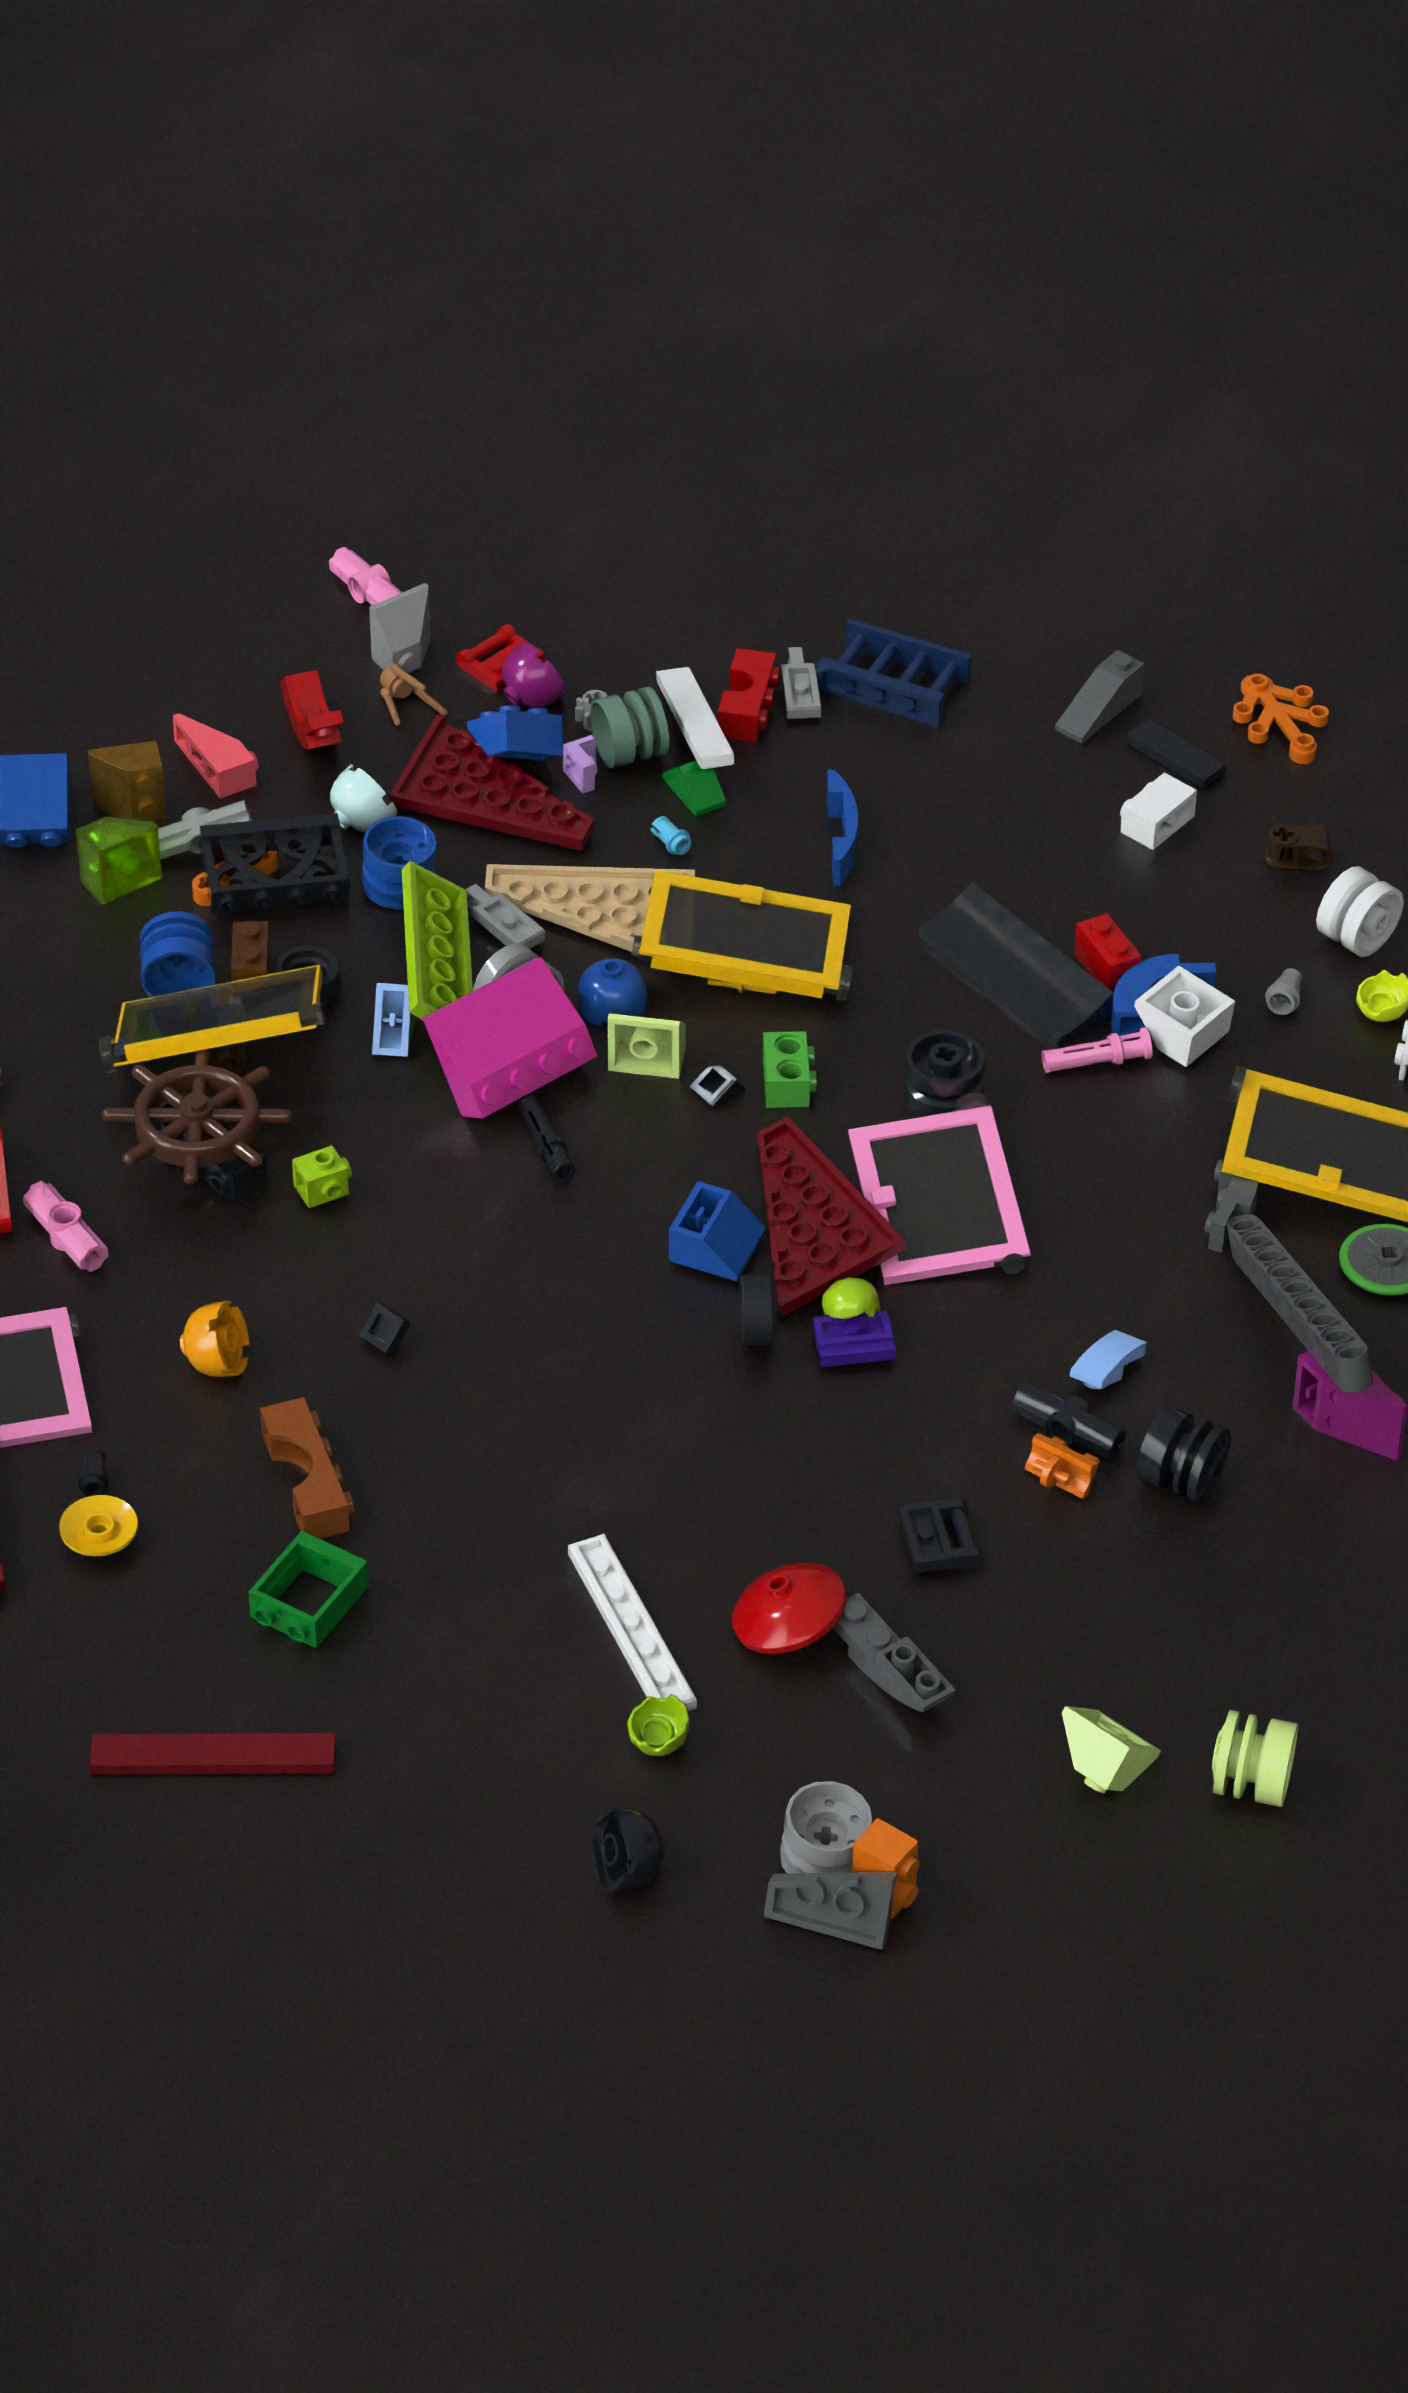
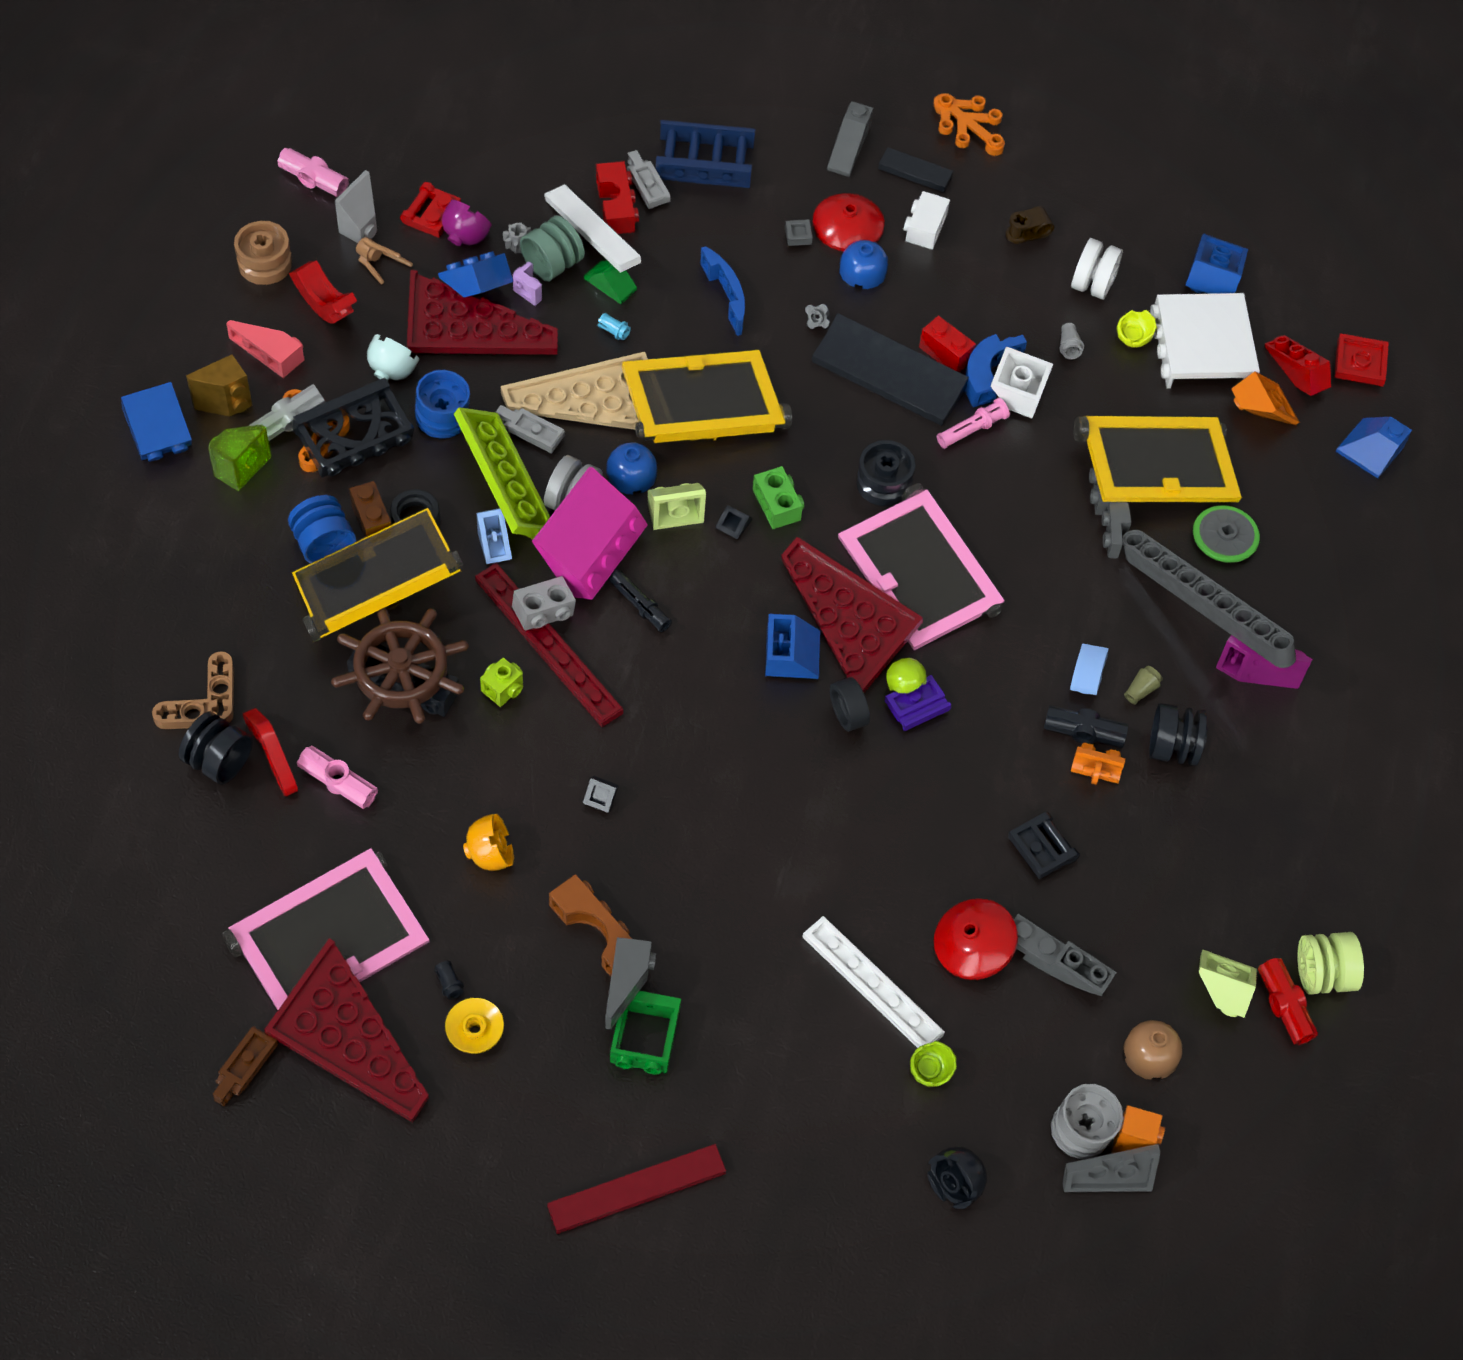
camera: 25 degrees left, 15 degrees up
(258, 653) = (263, 252): none -> medium nougat wheel
(306, 1514) = (629, 974): none -> dark grey slope
(406, 1159) = (553, 650): none -> dark red tile
(416, 1104) = (543, 603): none -> light grey brick
(956, 885) = (823, 311): none -> plate
(966, 1795) = (1153, 1049): none -> medium nougat cylinder
(973, 787) = (798, 232): none -> dark grey plate
(1044, 841) = (864, 264): none -> blue cylinder
(1051, 793) = (847, 219): none -> red dish
(1180, 1391) = (1144, 683): none -> olive cone
(1180, 1793) = (1287, 1001): none -> red piece

